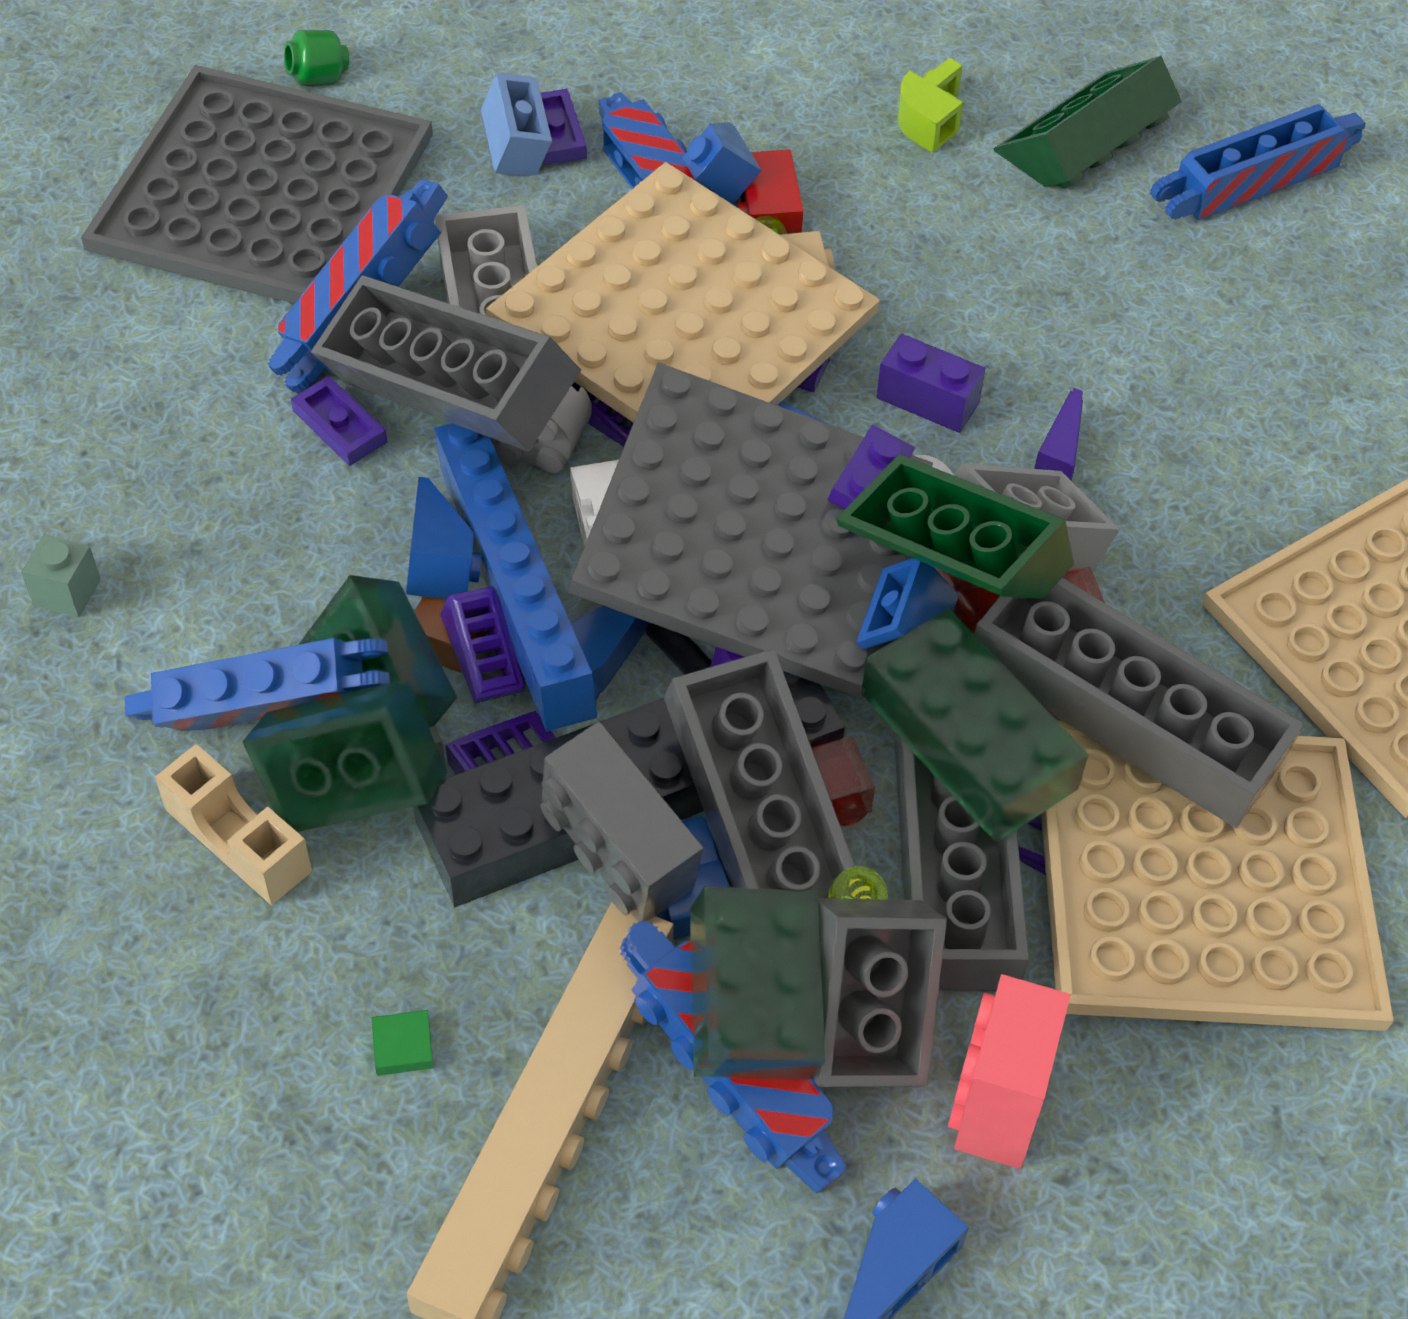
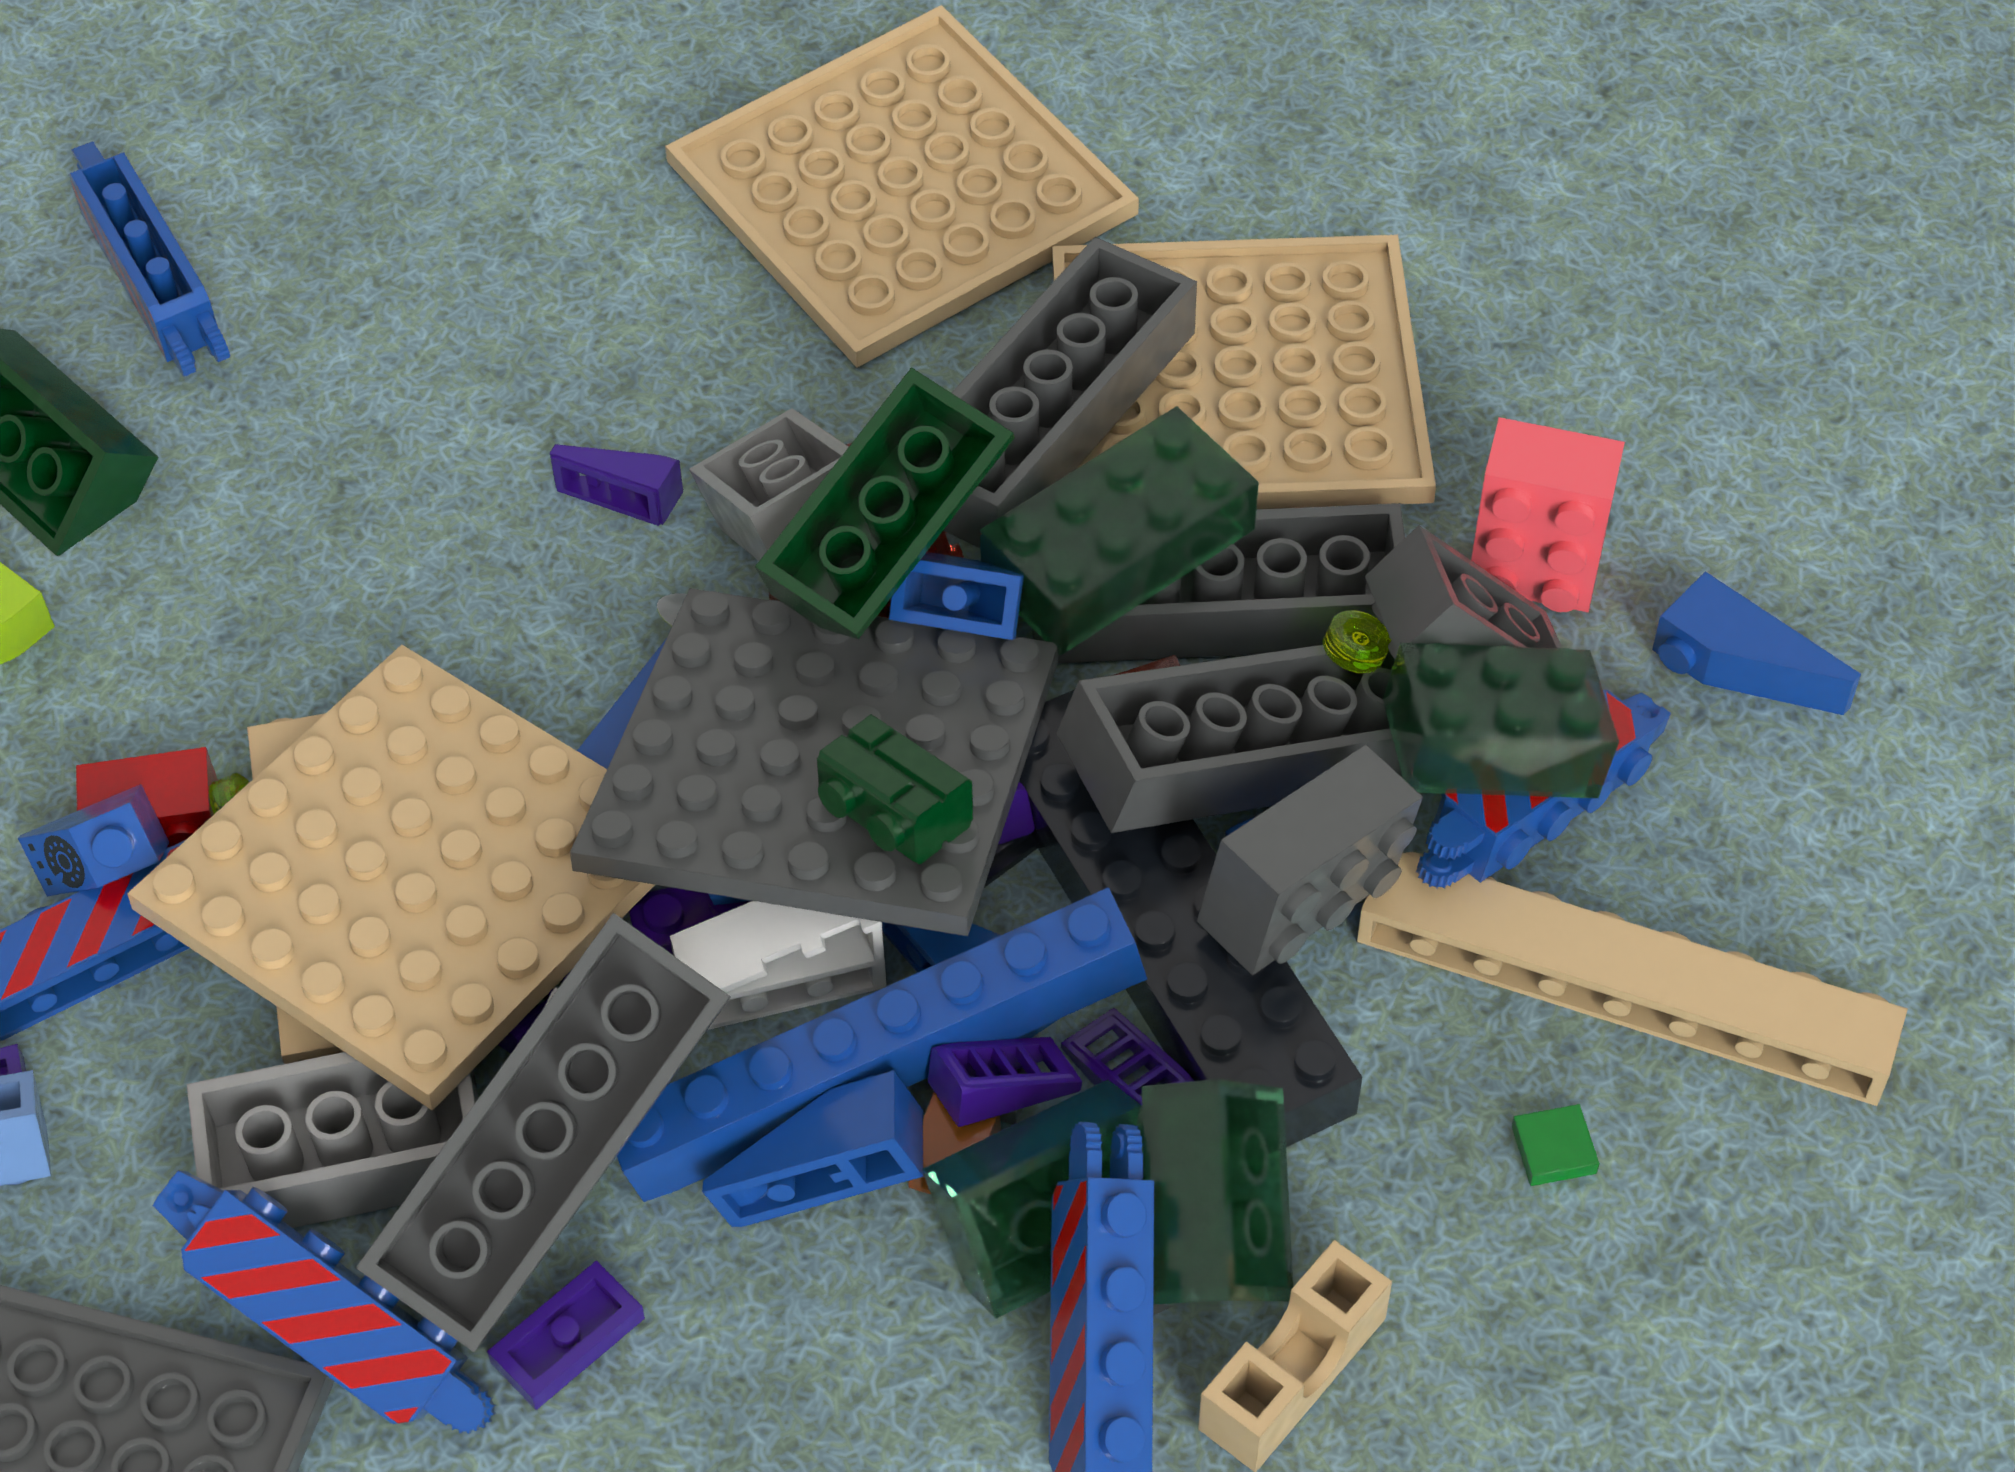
camera: 90 degrees left, 0 degrees up
(678, 529) = (894, 790): none -> dark green brick
(868, 461) = (740, 628): dark purple plate -> none
(930, 382) = (521, 612): dark purple brick -> none

